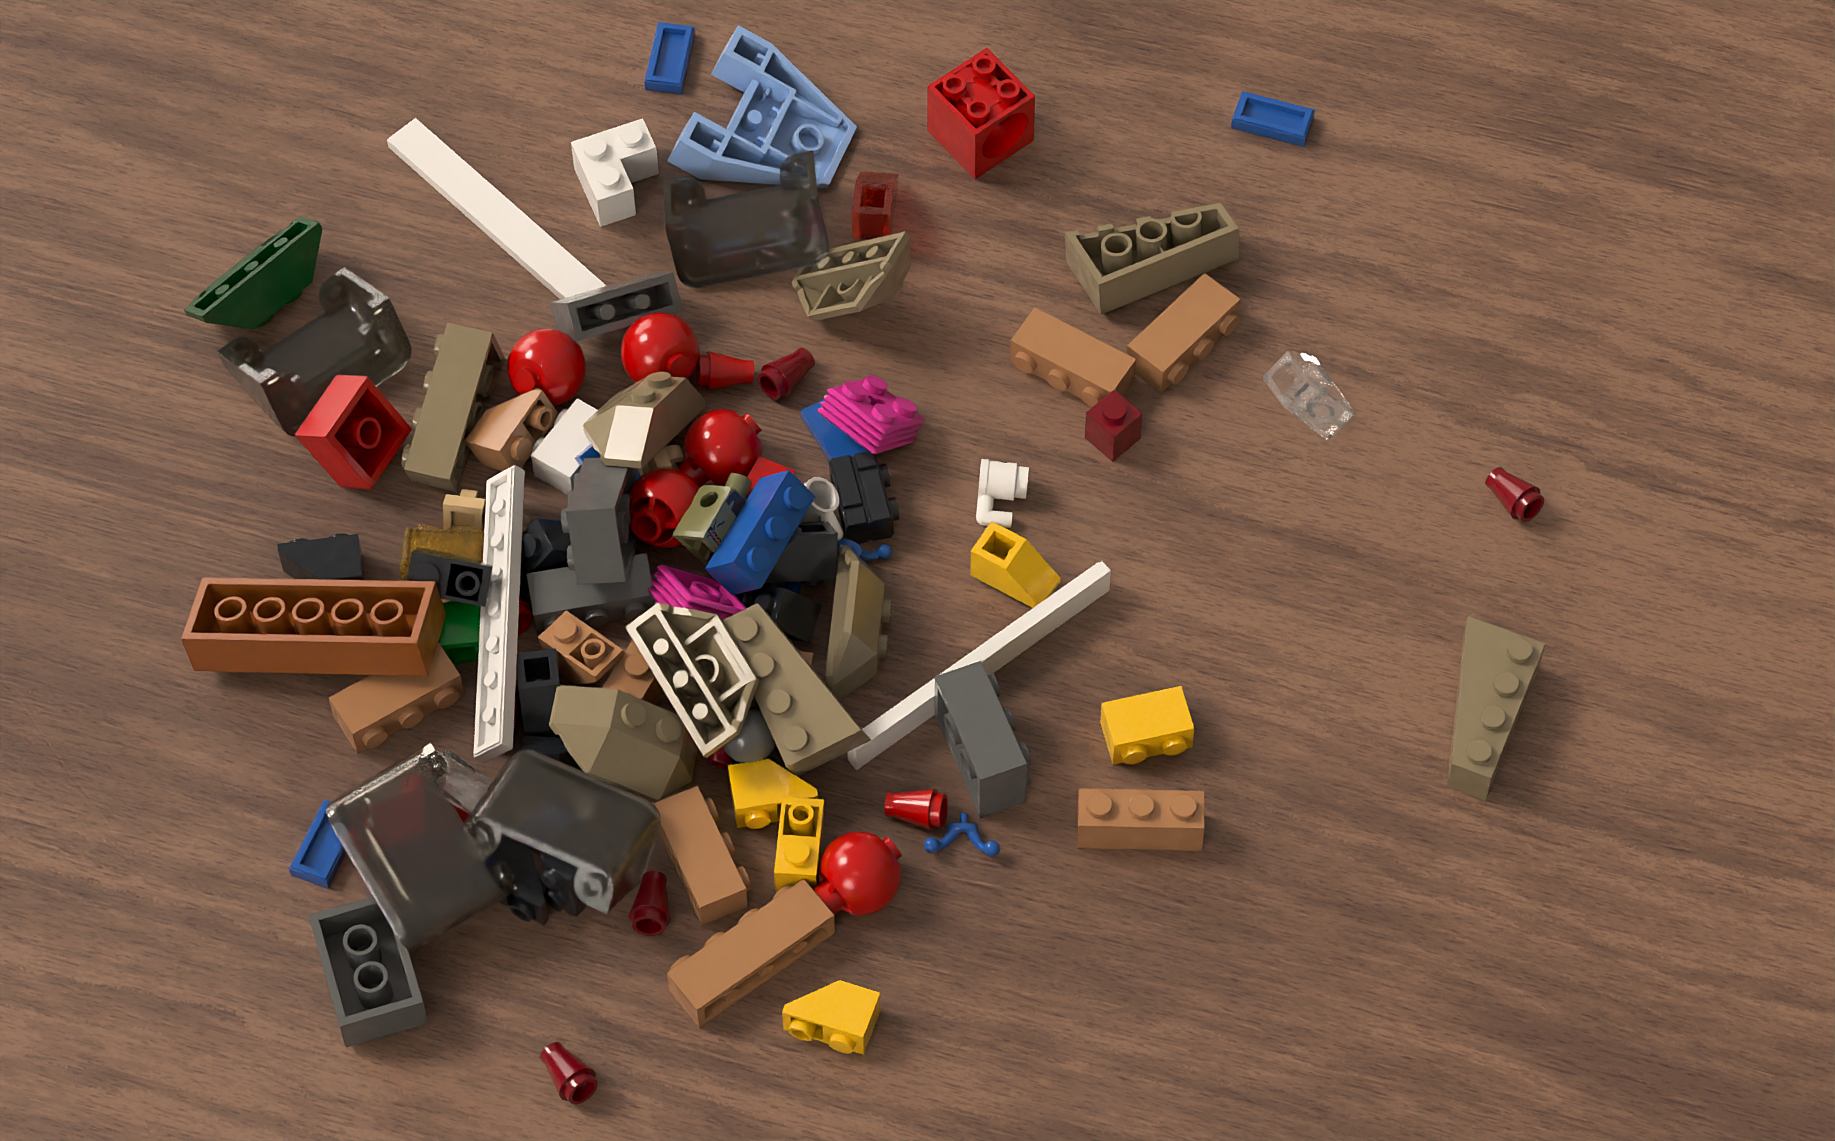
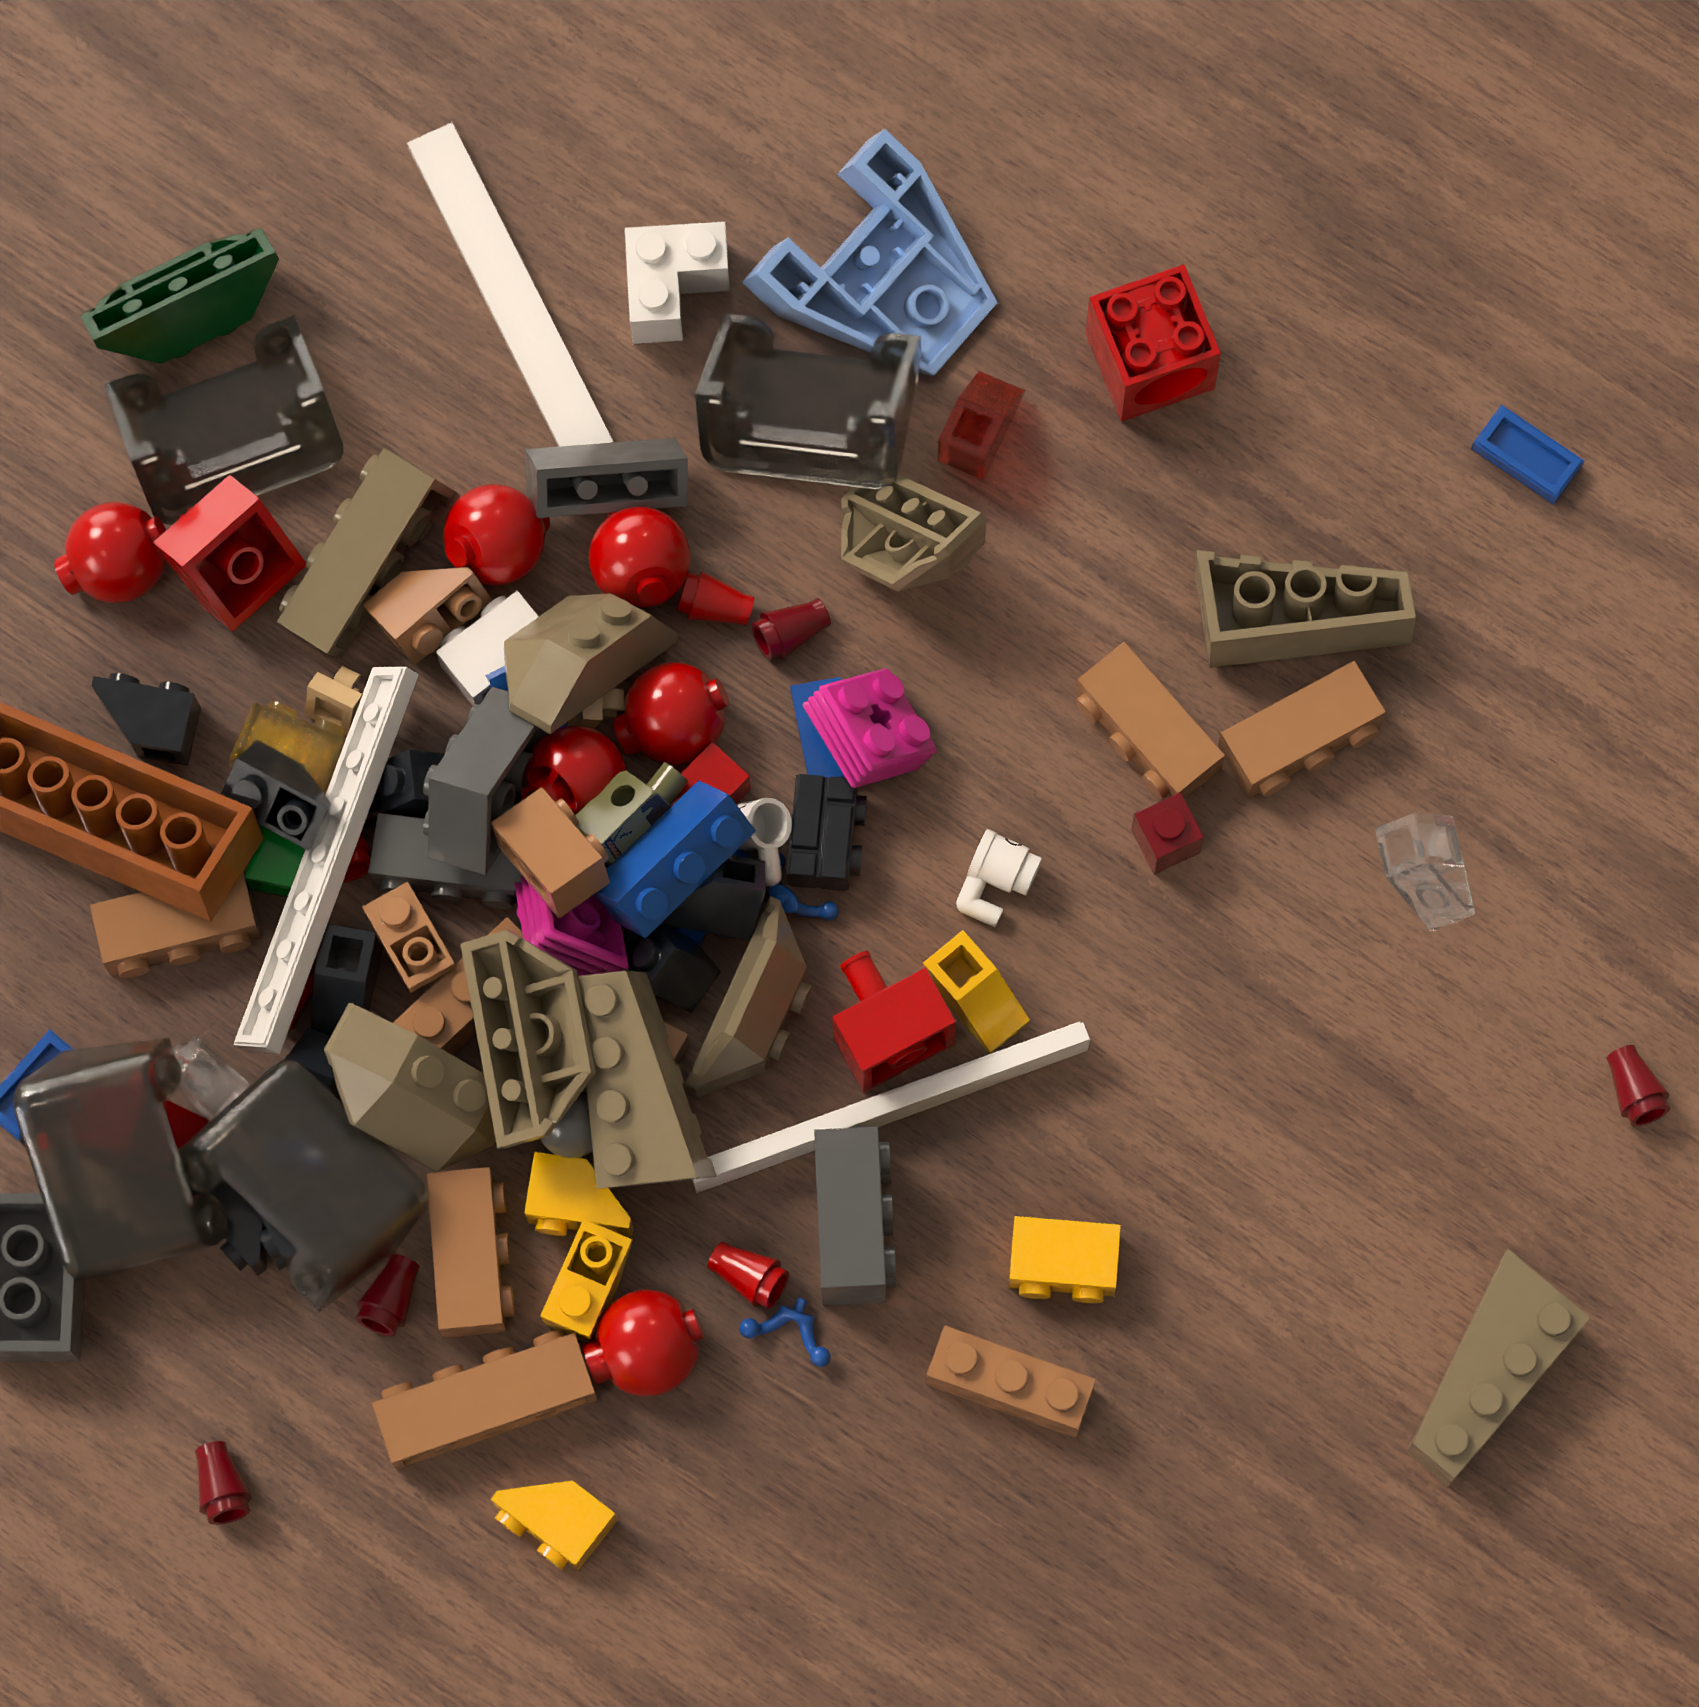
camera: 20 degrees right, 15 degrees up
(262, 462) = (112, 553): none -> red brick
(669, 58) = (796, 130): blue tile -> none
(671, 545) = (551, 851): none -> medium nougat brick
(962, 604) = (891, 1024): none -> red brick

